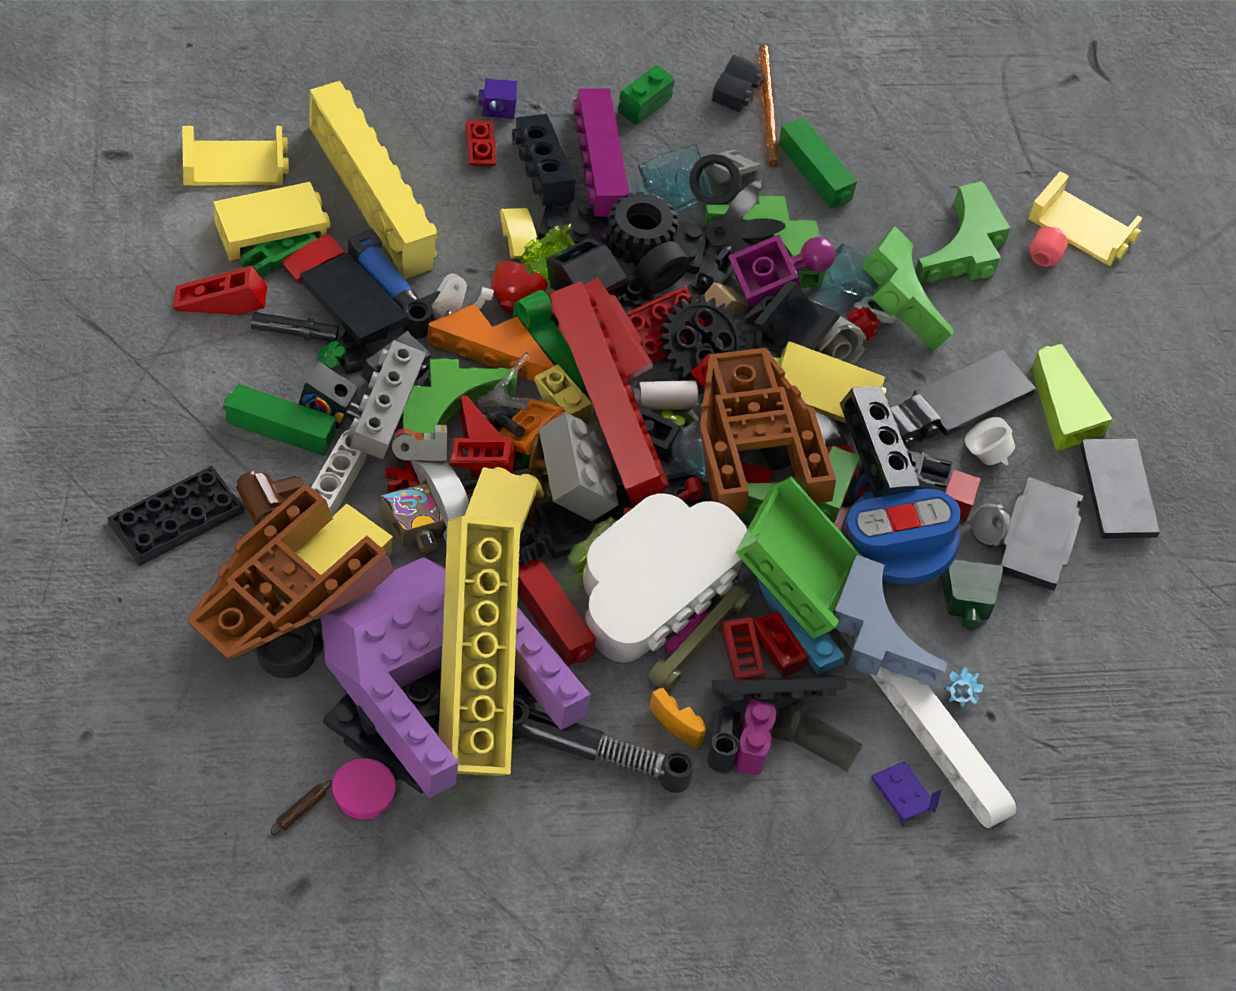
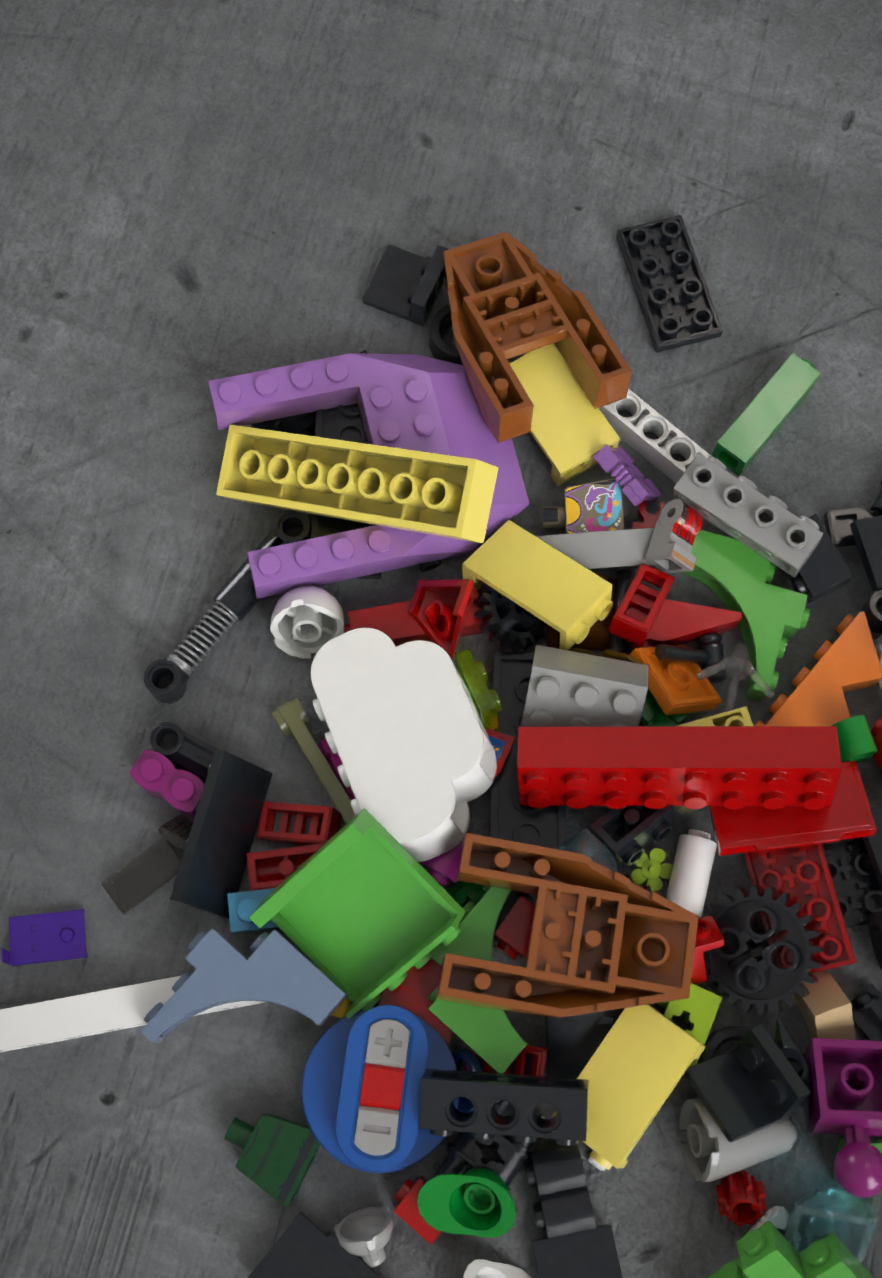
camera: 120 degrees right, 20 degrees up
(248, 697) = (406, 283): none -> black bracket
(264, 495) = (656, 369): reddish brown piece -> none
(301, 806) = (272, 302): reddish brown piece -> none
(330, 394) = (784, 460): torso -> none
(331, 356) = (849, 498): green plant -> none
(363, 788) = (268, 352): dark pink tile -> none
(376, 489) = (620, 464): none -> medium lavender piece
(547, 575) = (442, 610): none -> red slope
(590, 672) = (306, 620): none -> white cylinder
(681, 723) = (219, 713): light orange slope -> none
(693, 489) = (524, 836): red hand -> none
(944, 455) = (468, 1203): none -> green piece
(962, 679) = (144, 1072): medium azure gear -> none

